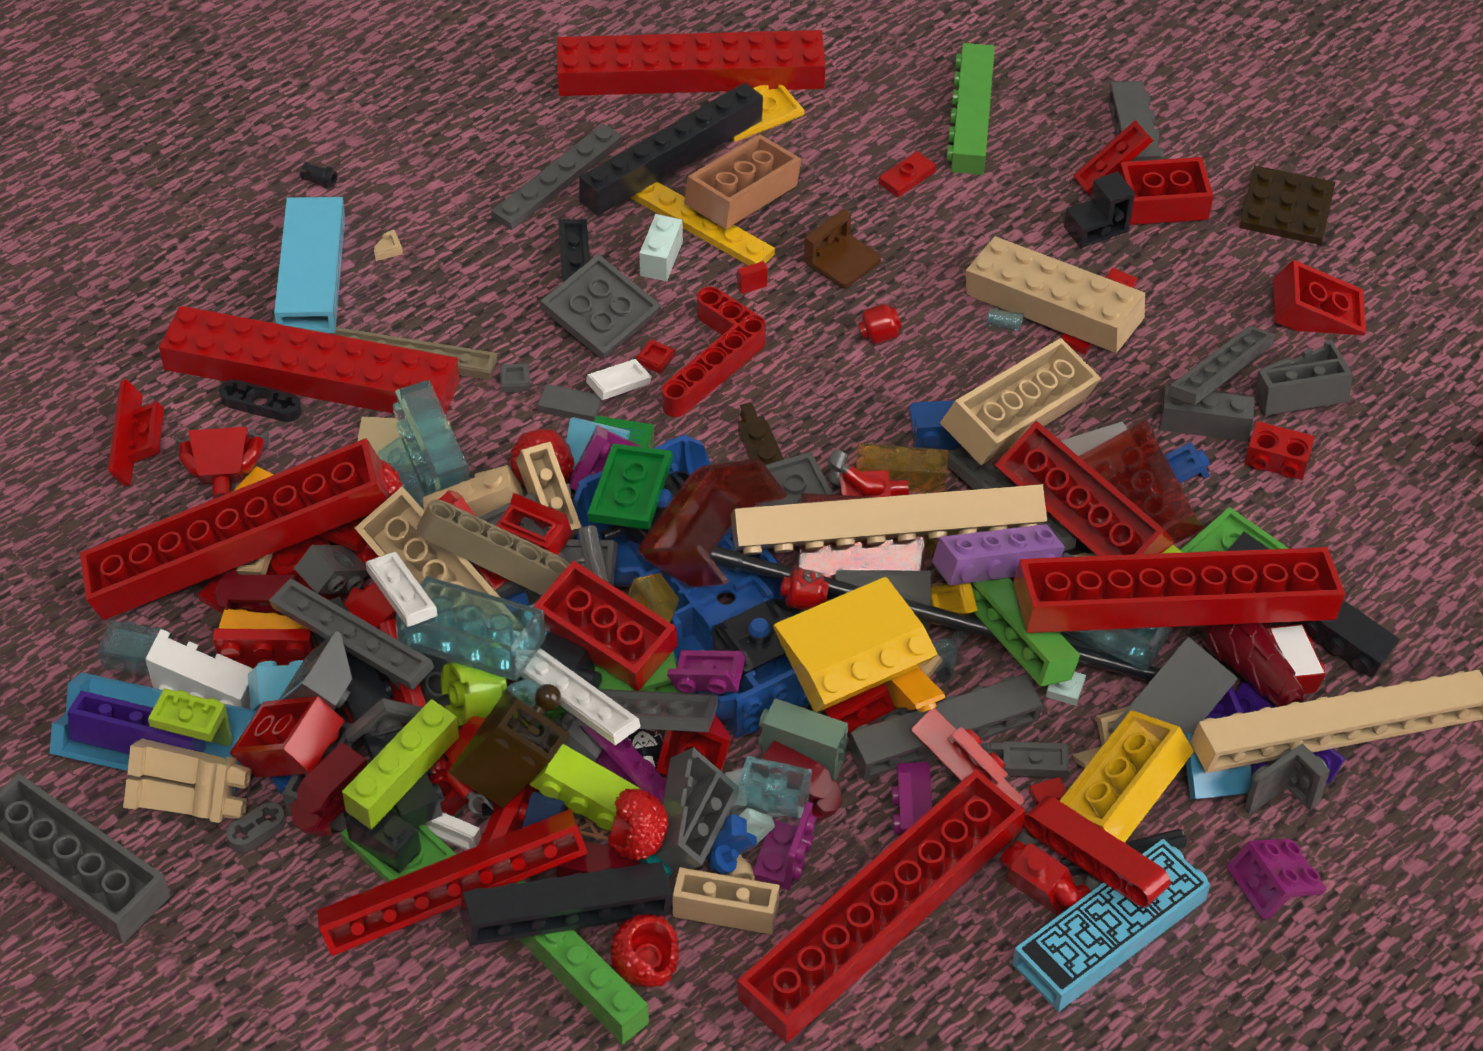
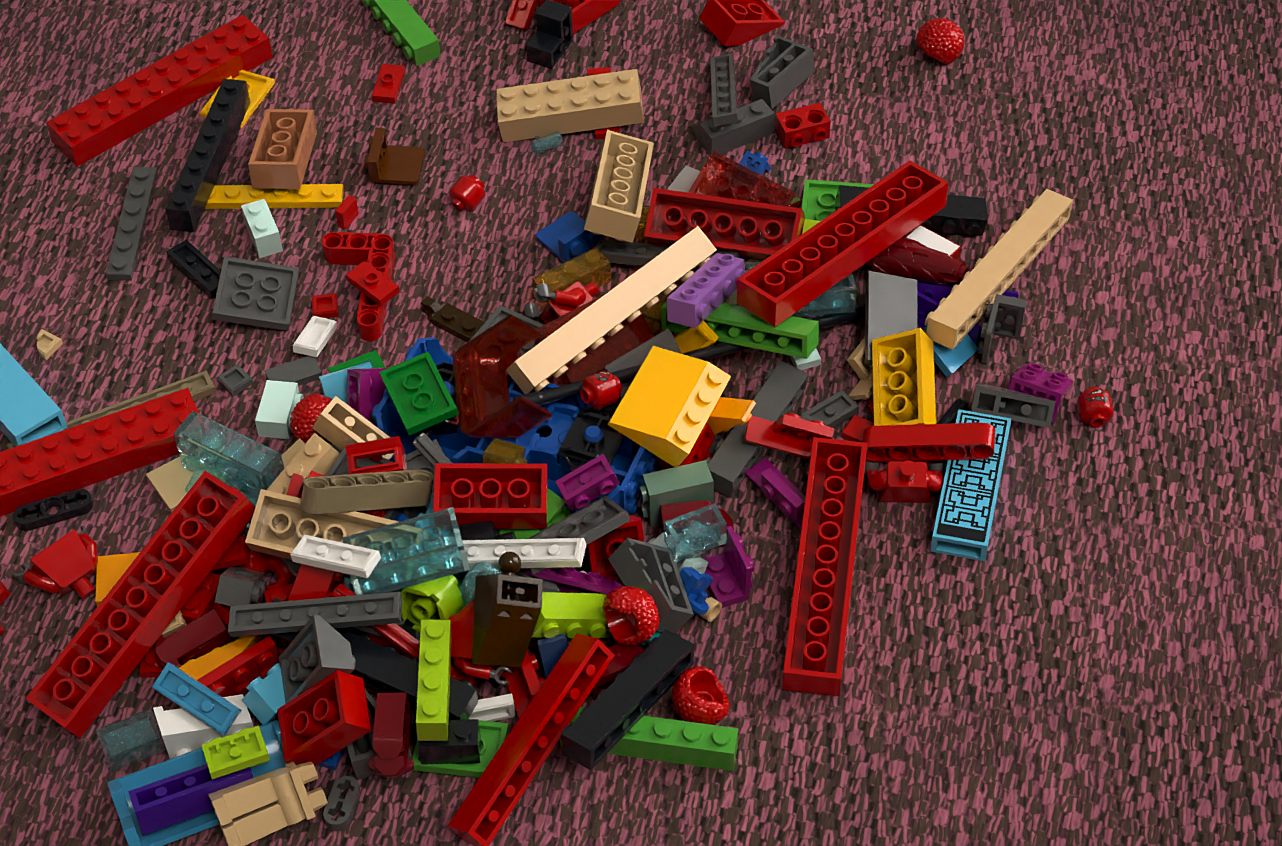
camera: 35 degrees left, 0 degrees up
(202, 645) = (196, 698): none -> dark azure tile
(383, 718) = (391, 658): dark grey tile -> none
(524, 417) = (276, 408): none -> light aqua brick
(705, 358) = (372, 283): none -> red plate
(725, 900) = (724, 628): tan brick -> none
(1224, 869) = (1012, 404): none -> dark grey slope
(1320, 931) = (1094, 406): none -> red head

